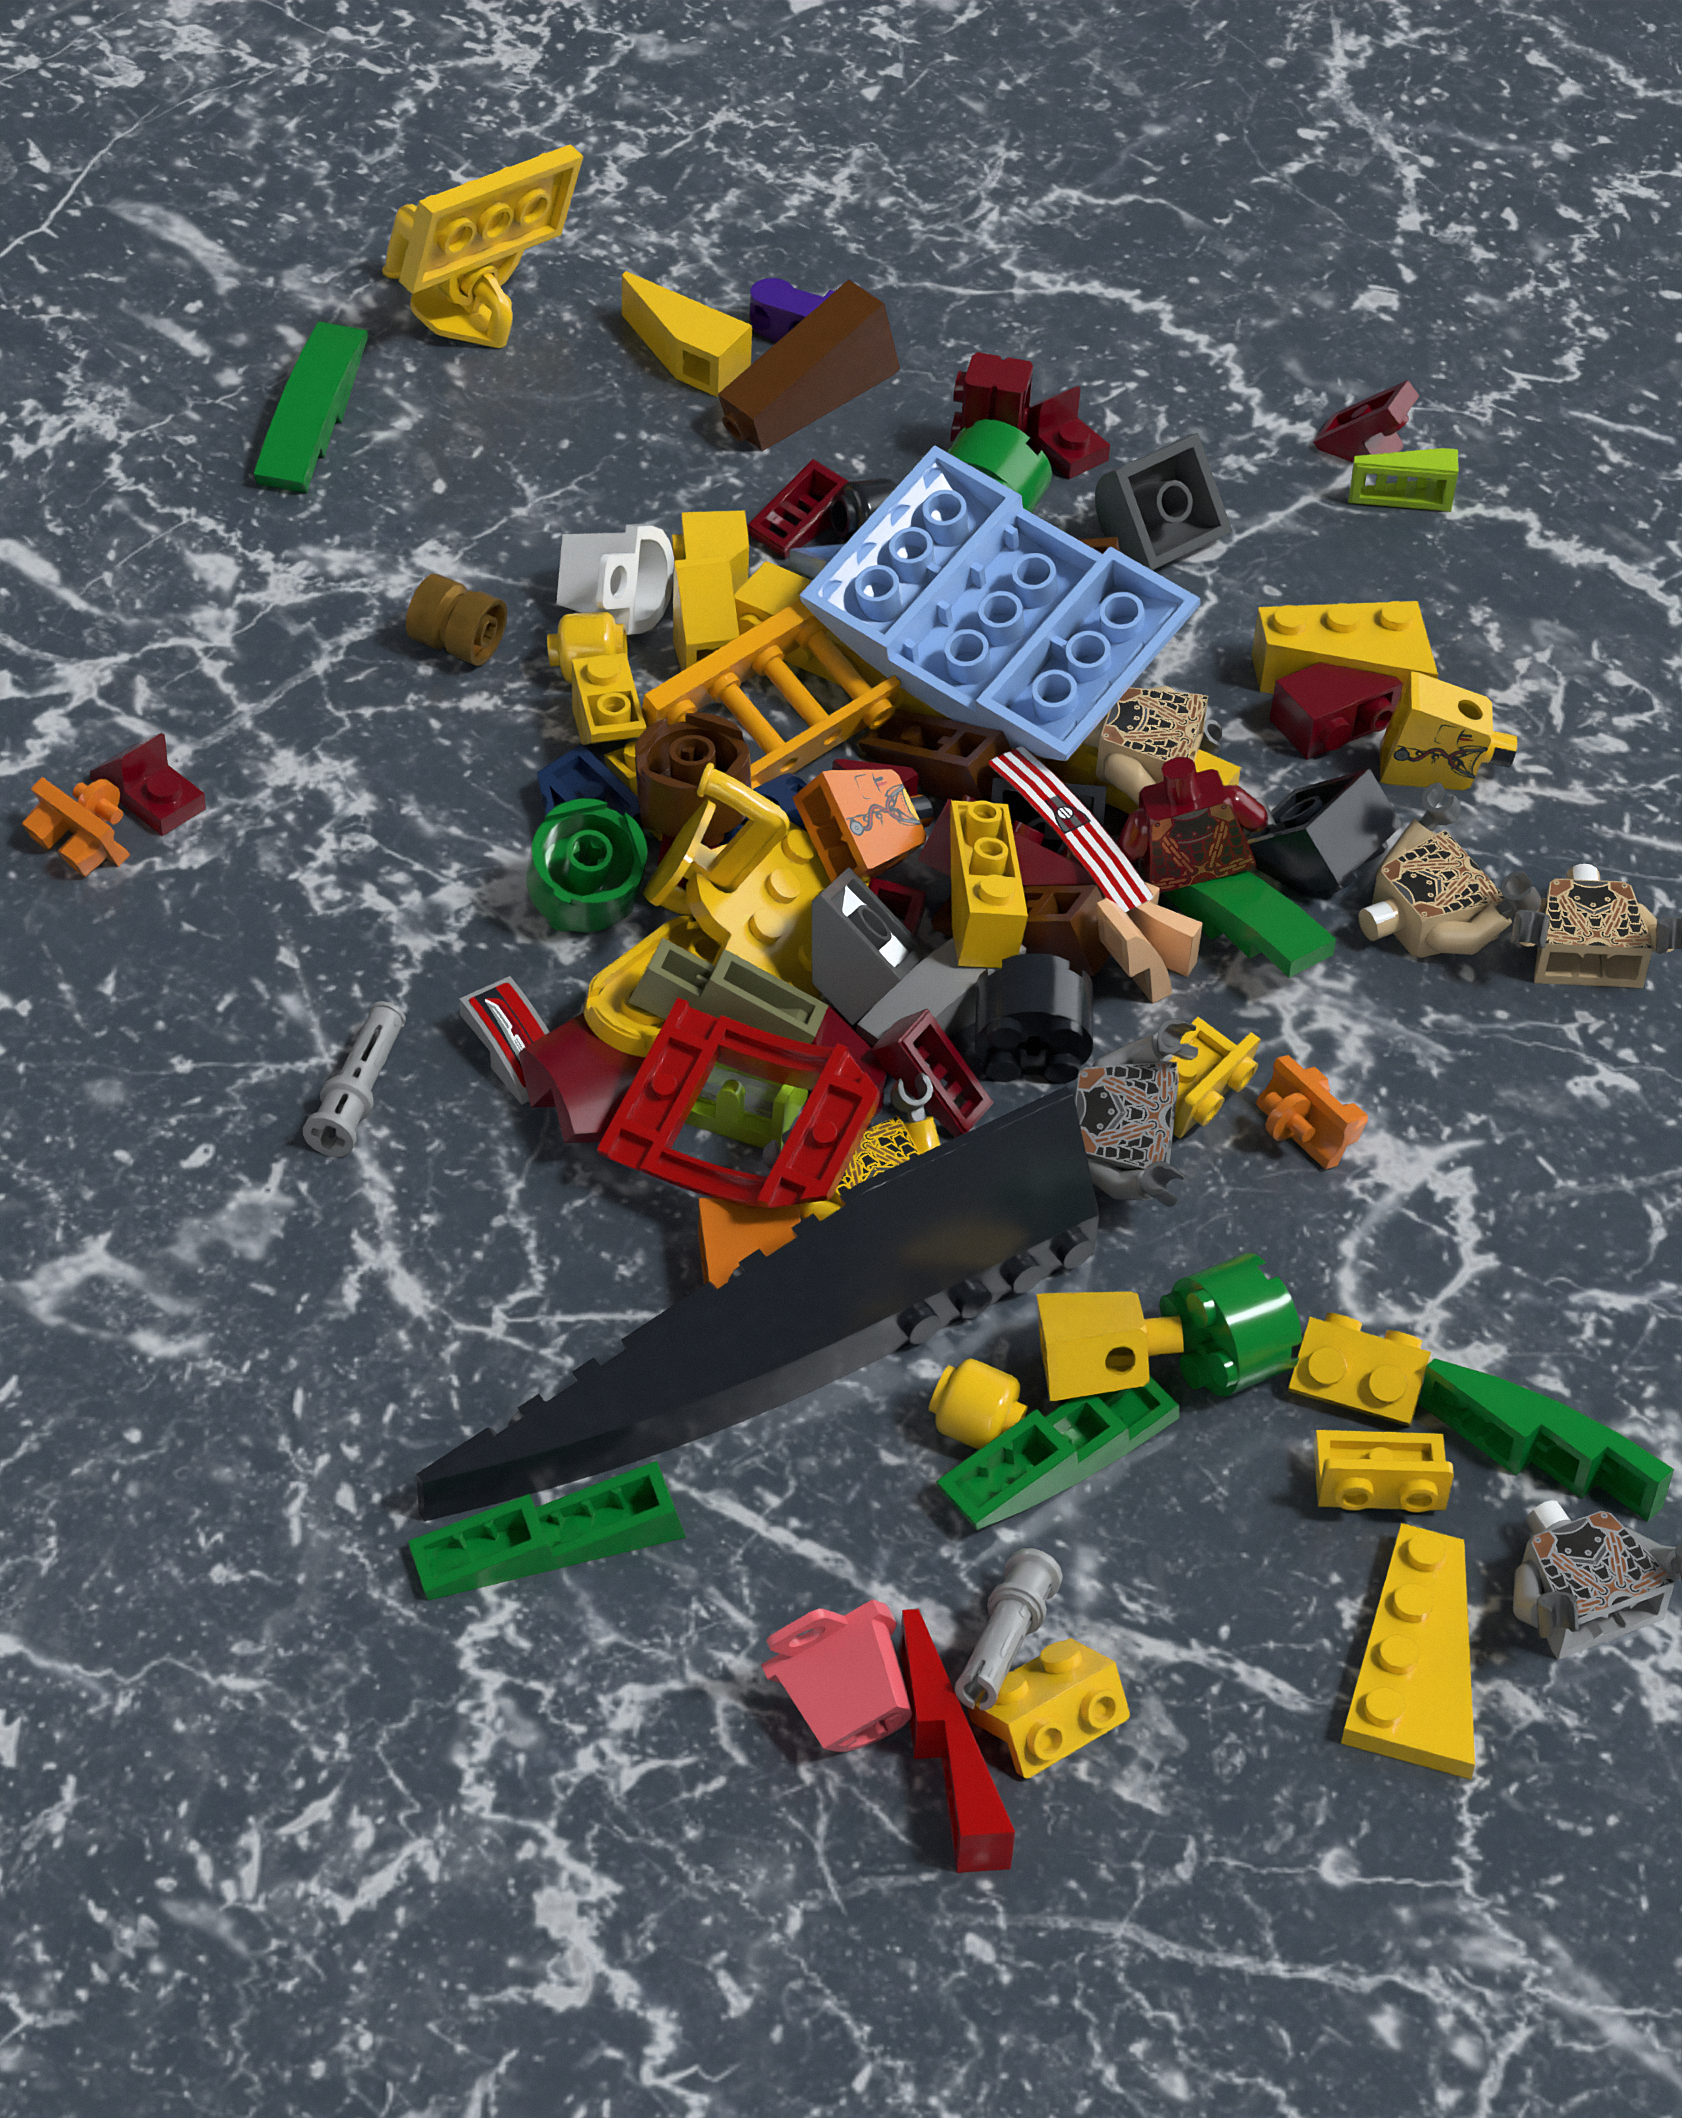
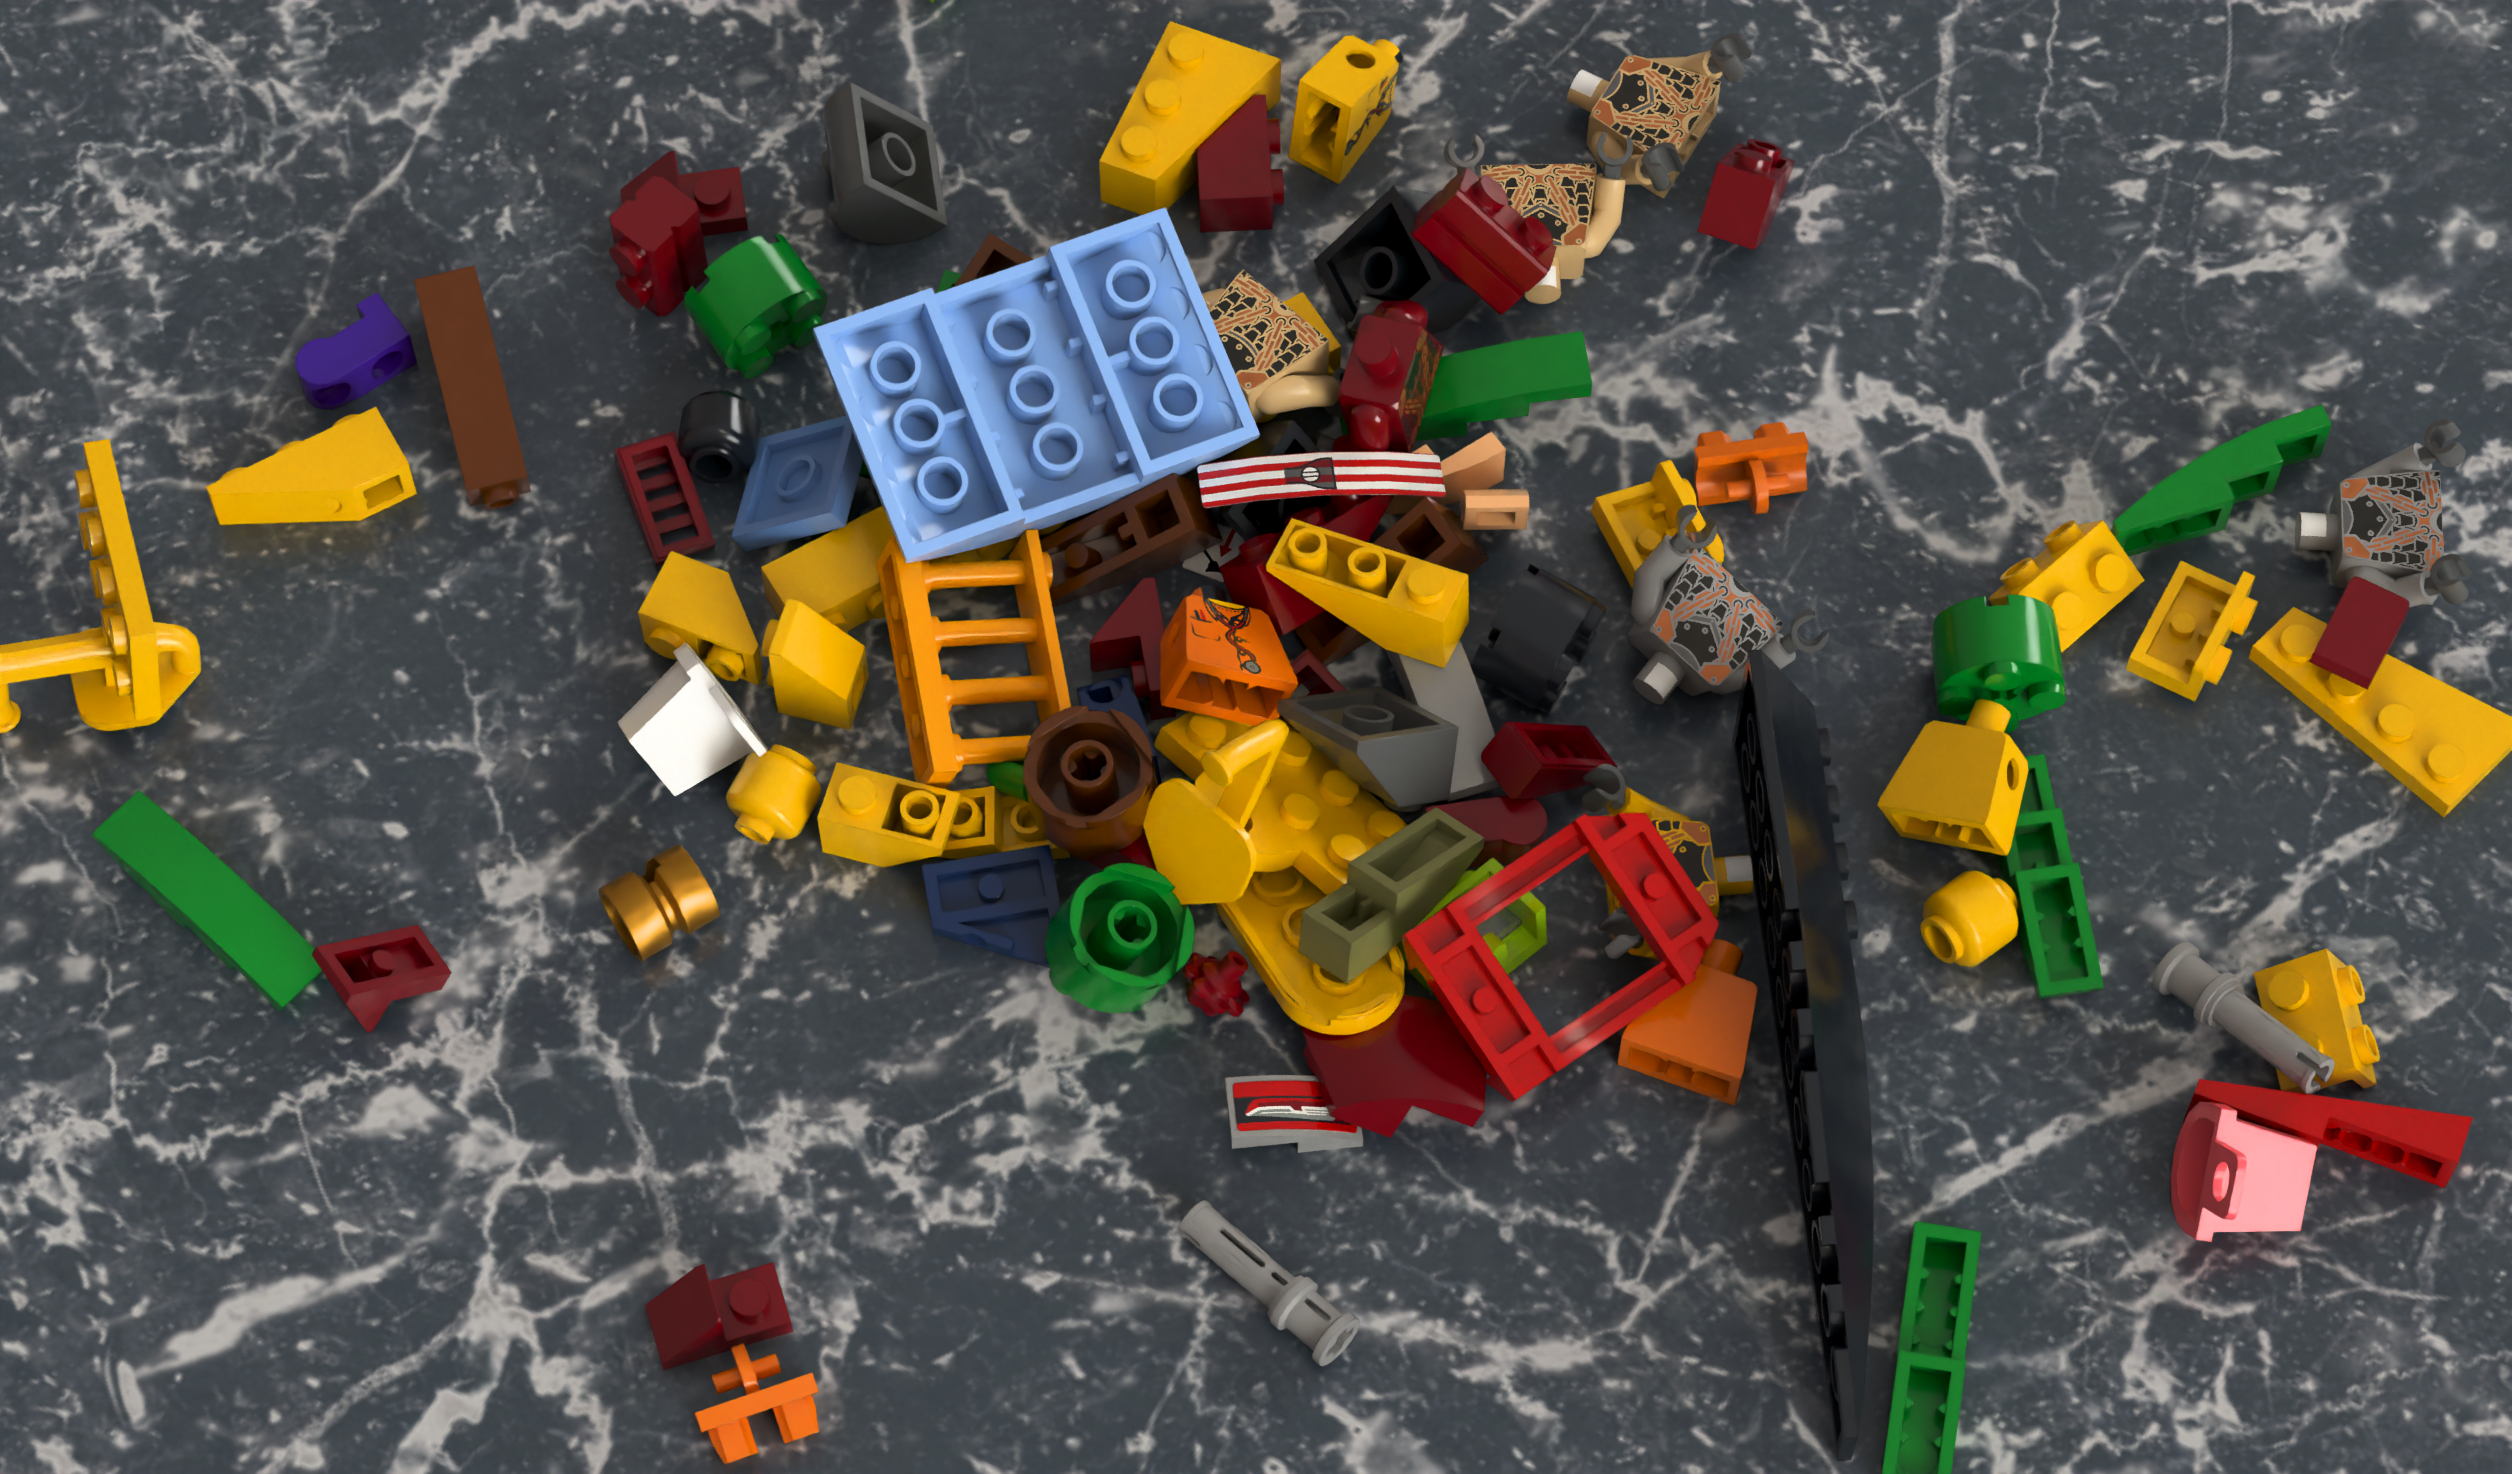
camera: 60 degrees left, 15 degrees up
(297, 489) = (381, 969): none -> dark red slope
(593, 947) = (1216, 984): none -> dark red plant
(1363, 840) = (1485, 239): none -> dark red brick
(1459, 1580) = (2360, 632): none -> dark red slope
(1569, 1015) = (1746, 193): none -> dark red slope

